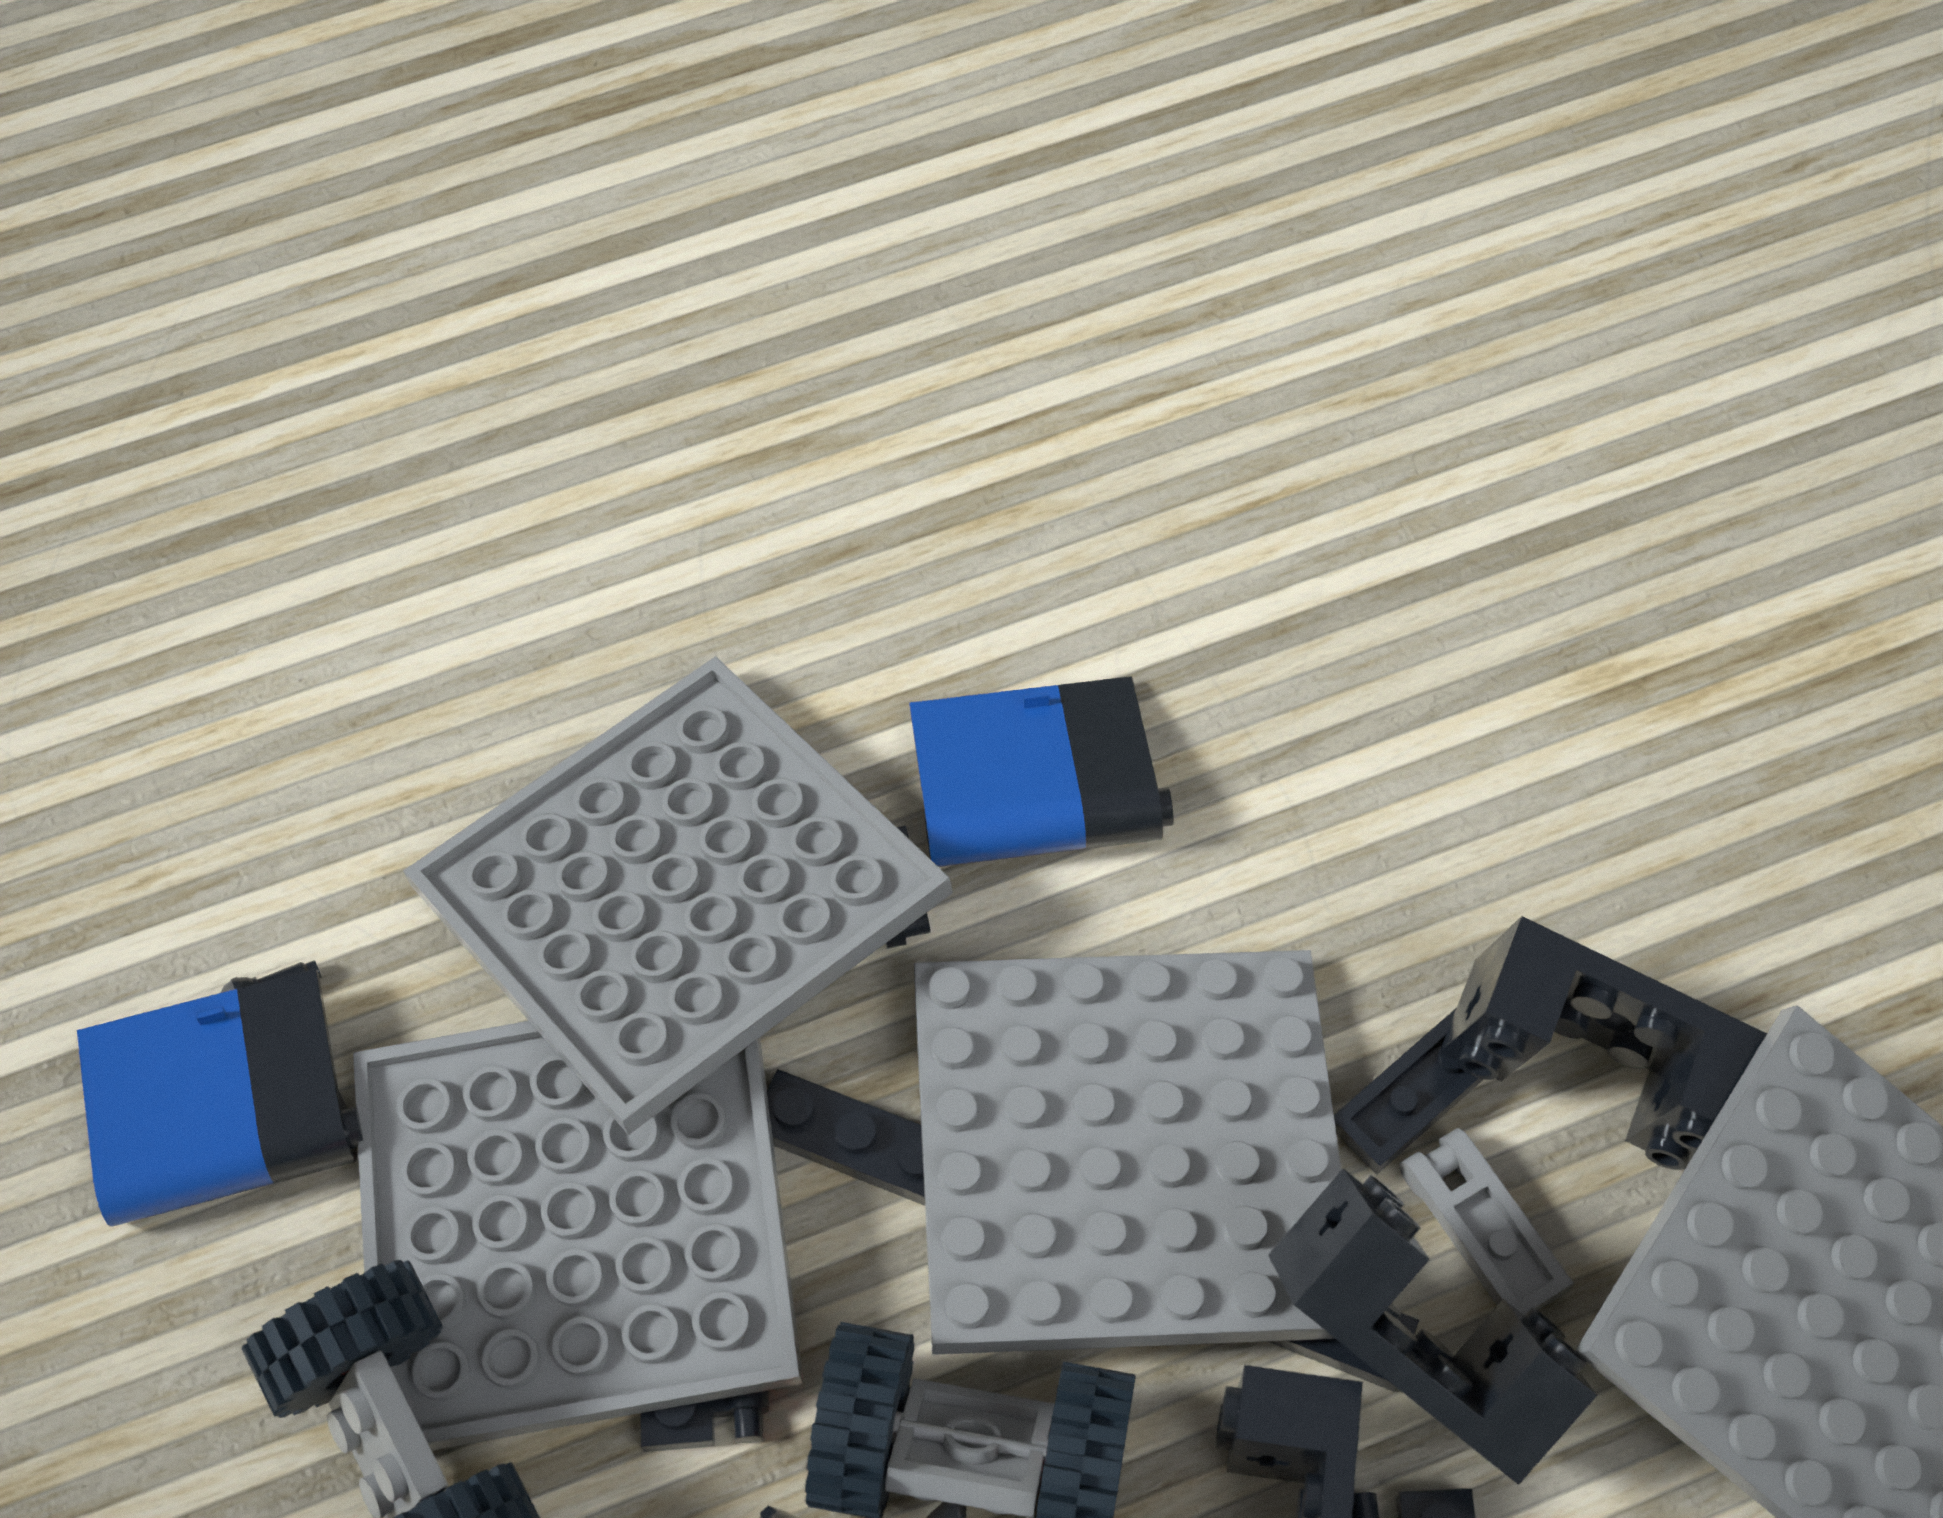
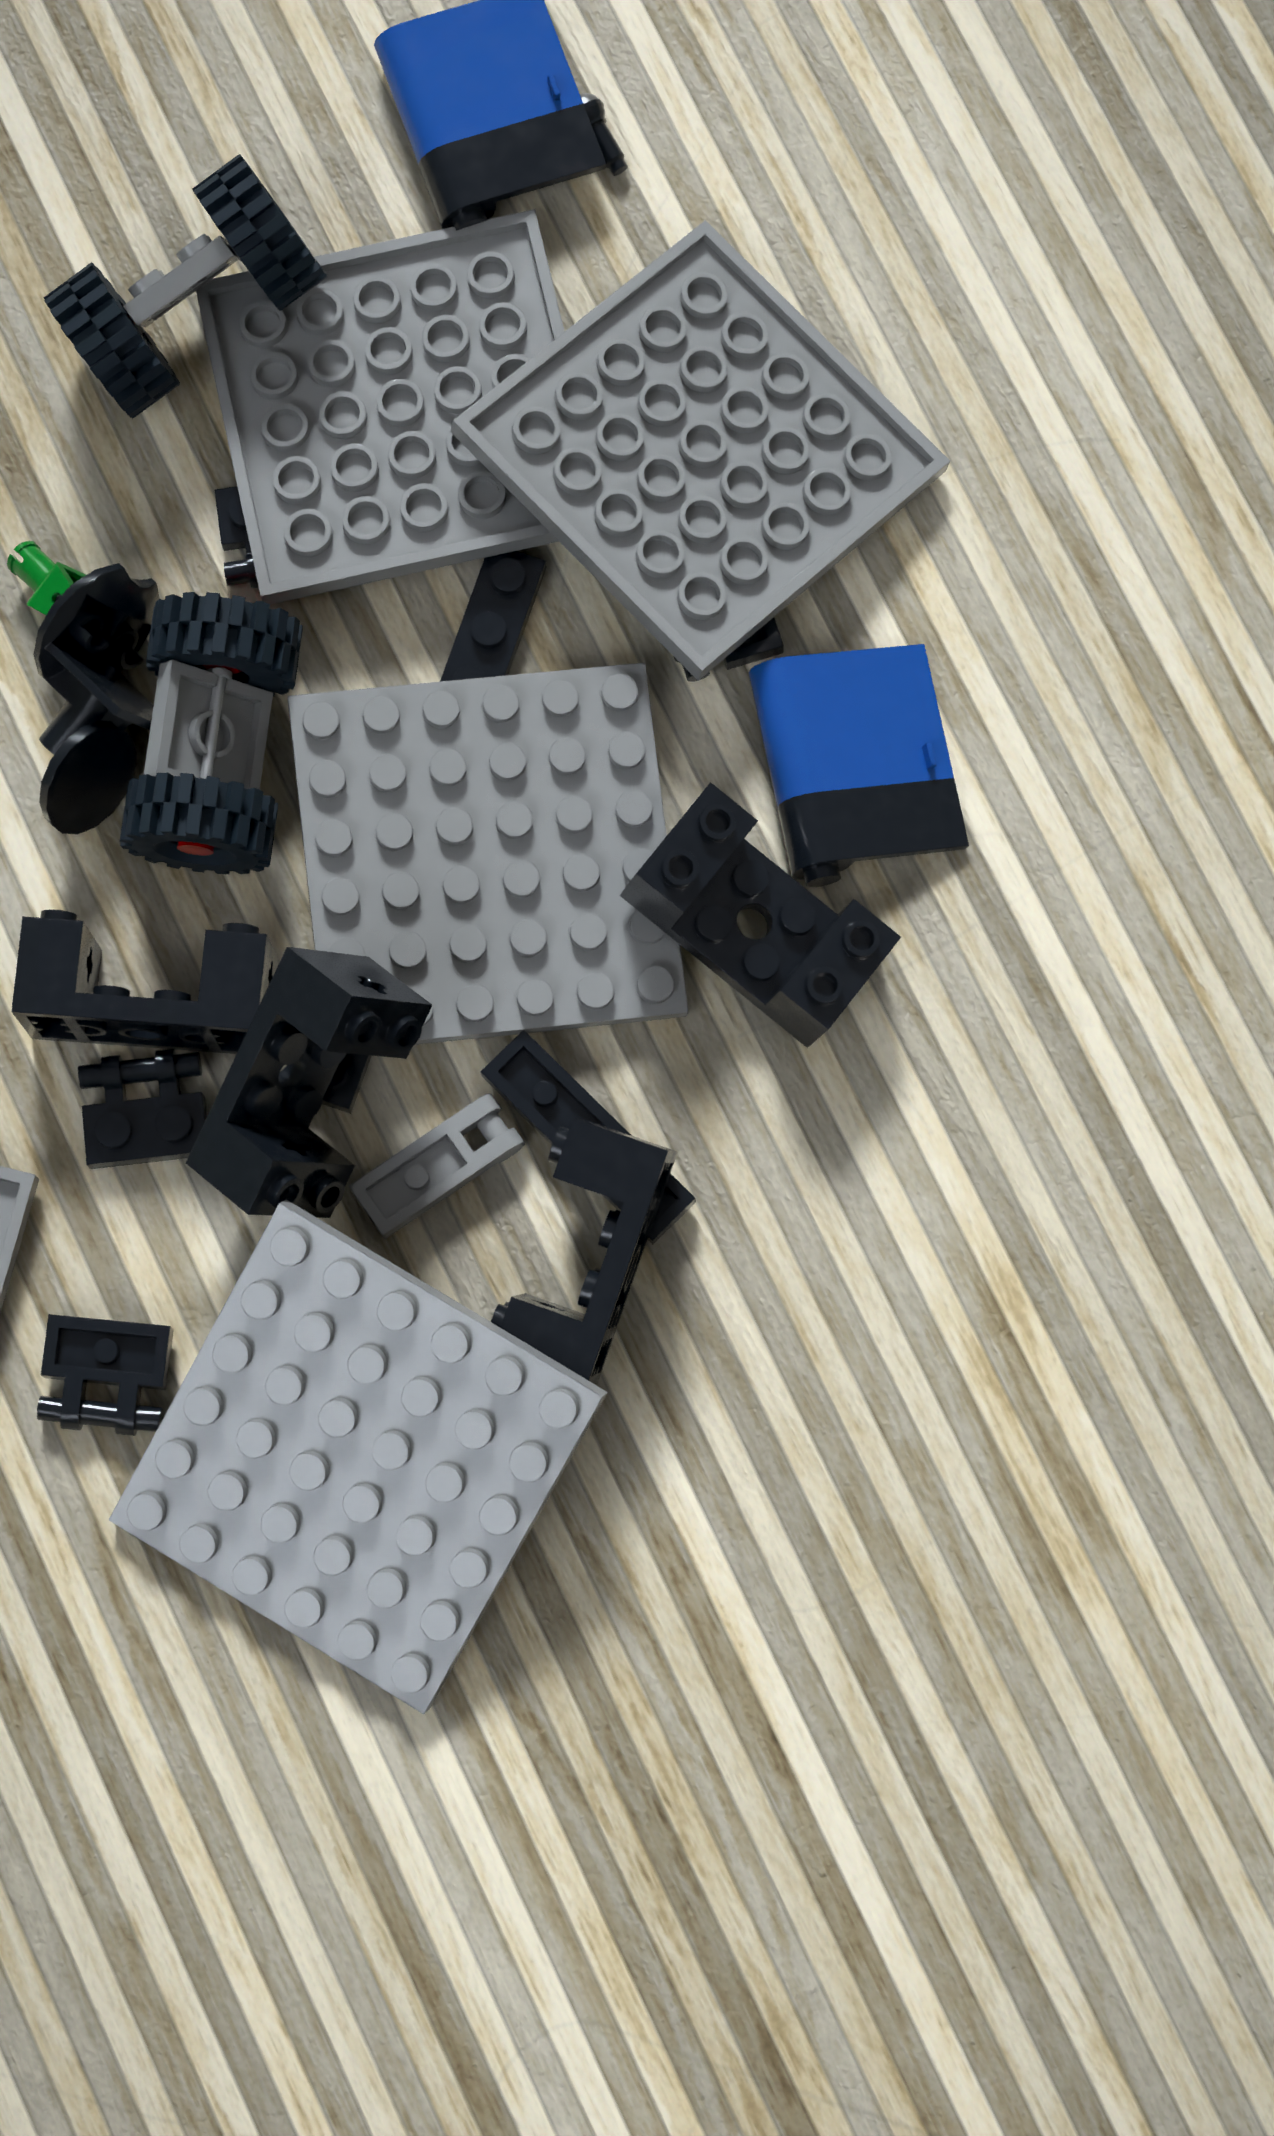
camera: 90 degrees right, 15 degrees up
(1268, 820) = (810, 955): none -> black plate

